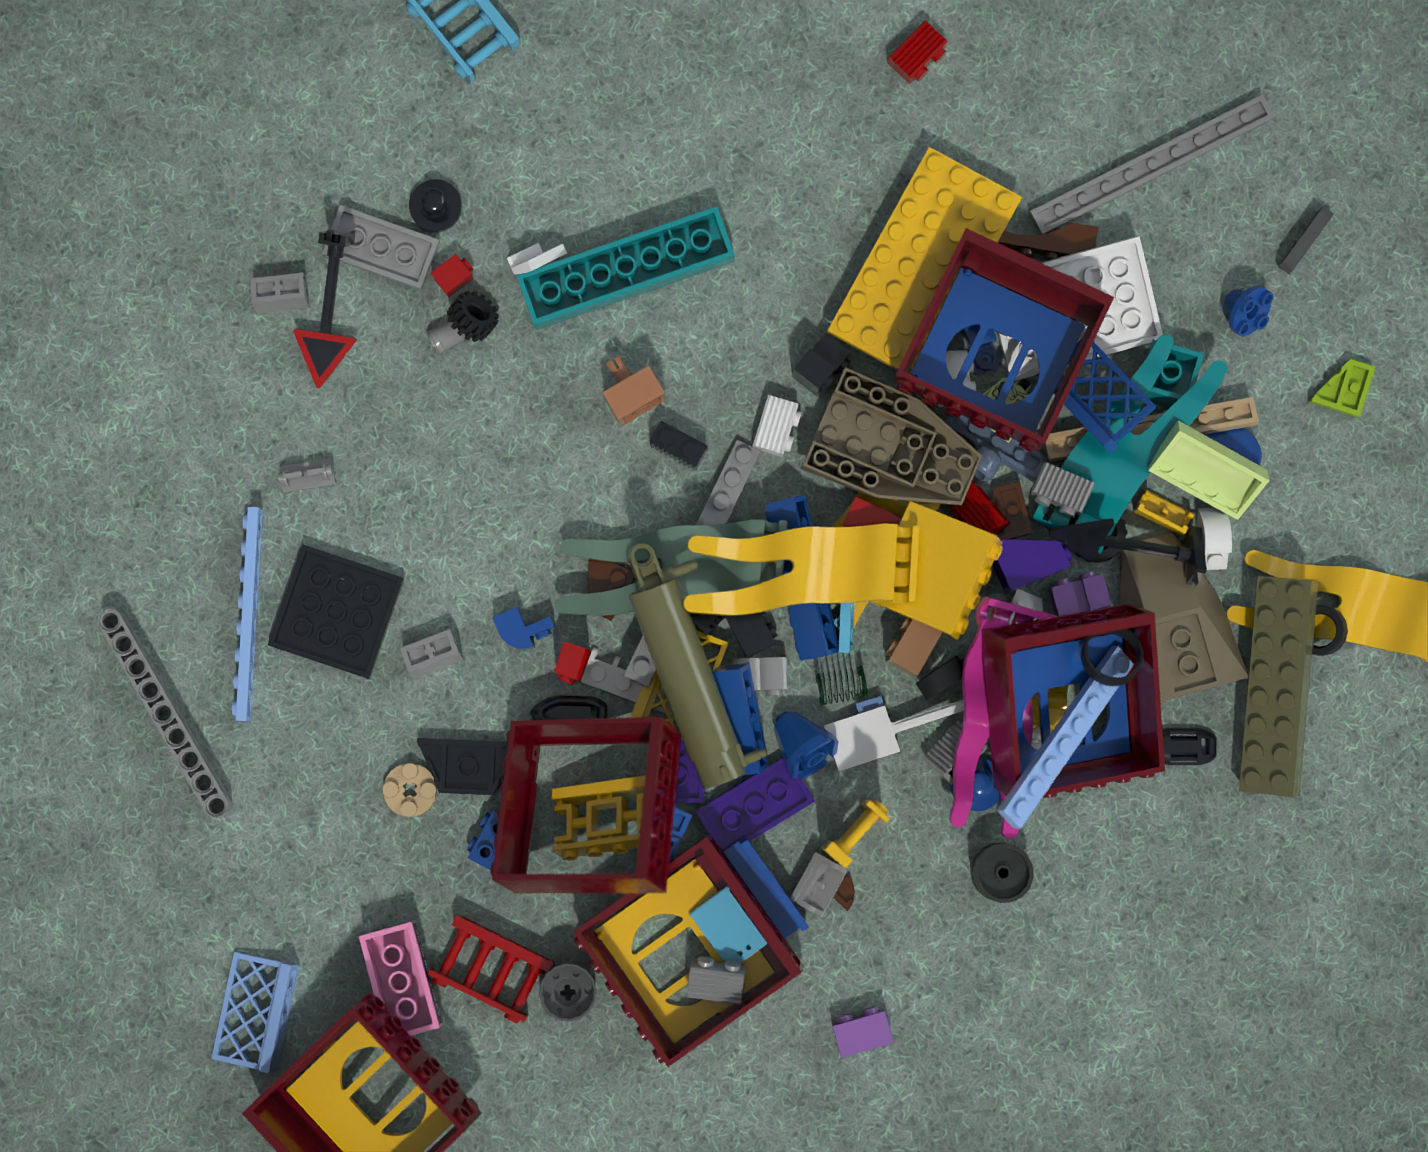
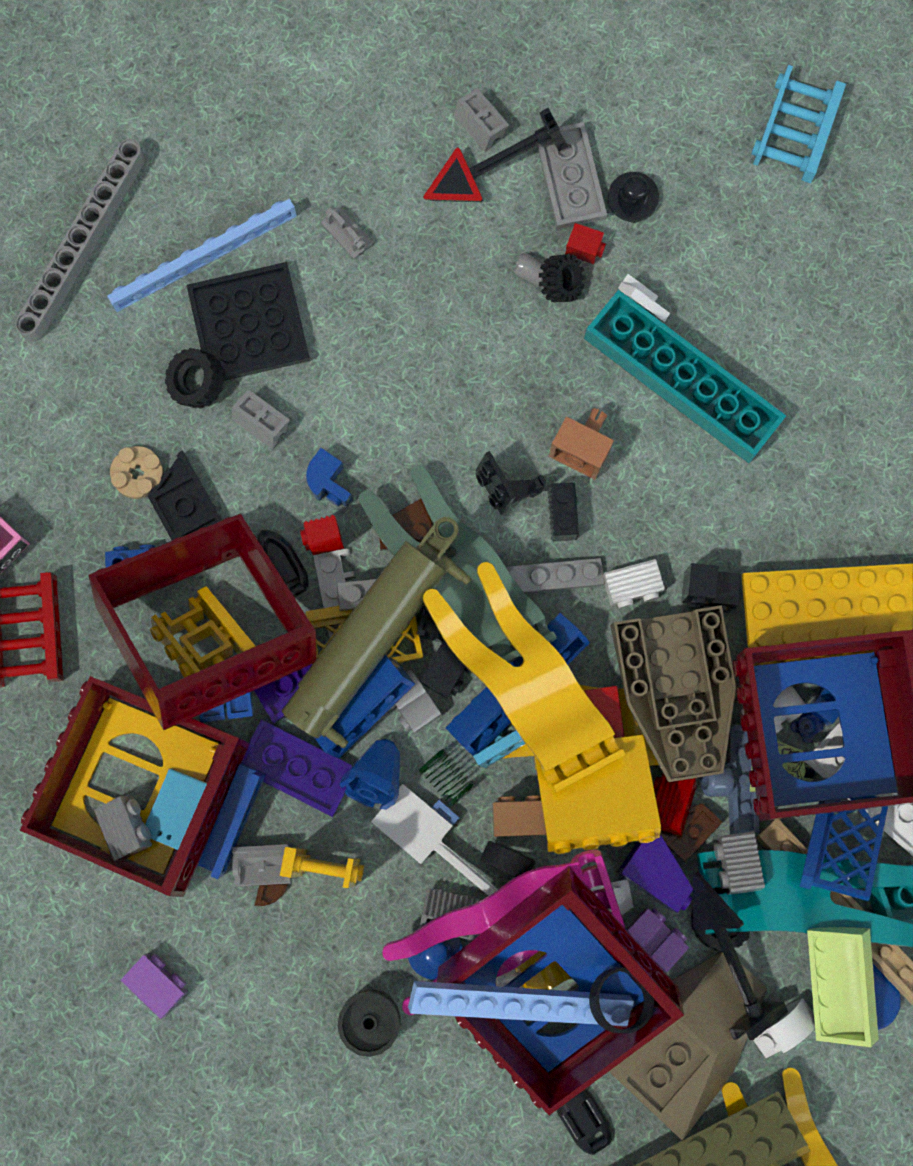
camera: 60 degrees right, 5 degrees down
(373, 674) = (177, 373): none -> black tyre
(580, 1003) = (23, 705): dark grey wheel -> none
(630, 486) = (503, 492): none -> black plate
(1163, 512) = (778, 969): yellow hinge -> none

